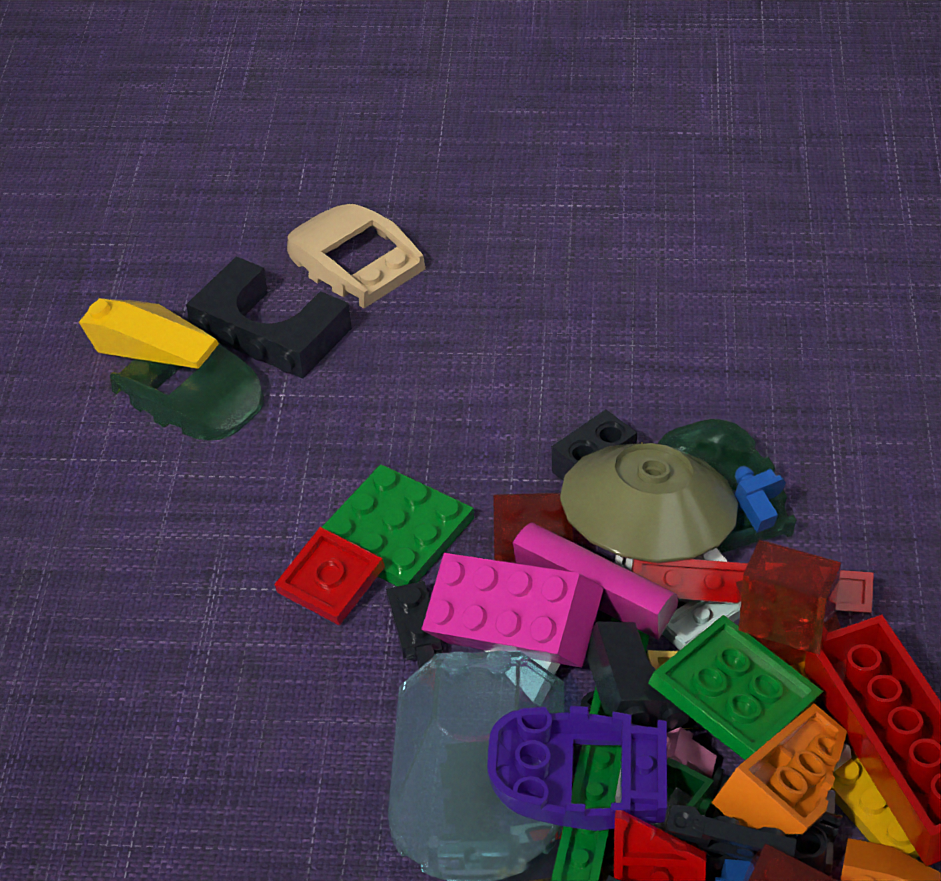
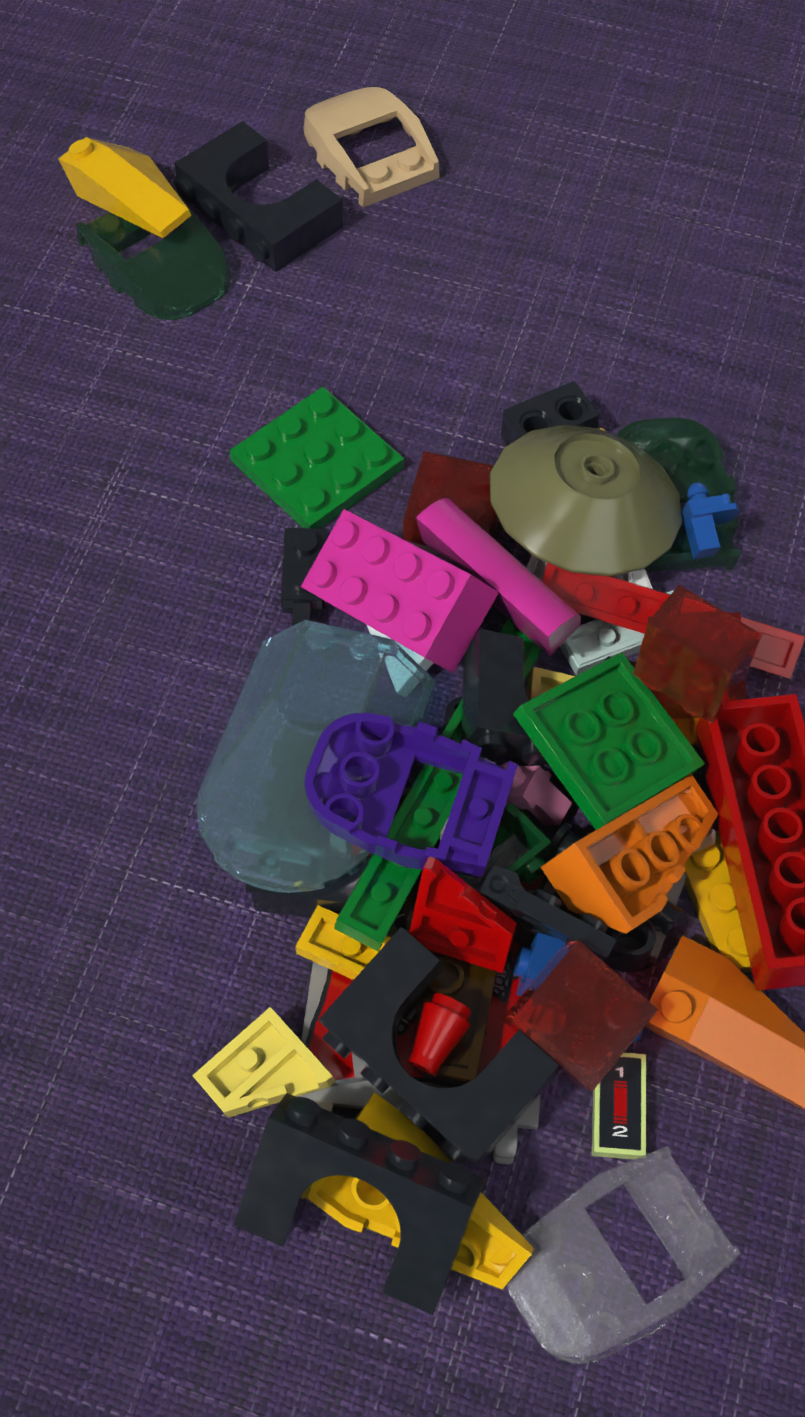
camera: 10 degrees right, 15 degrees up
(329, 575) = (230, 499): red plate -> none

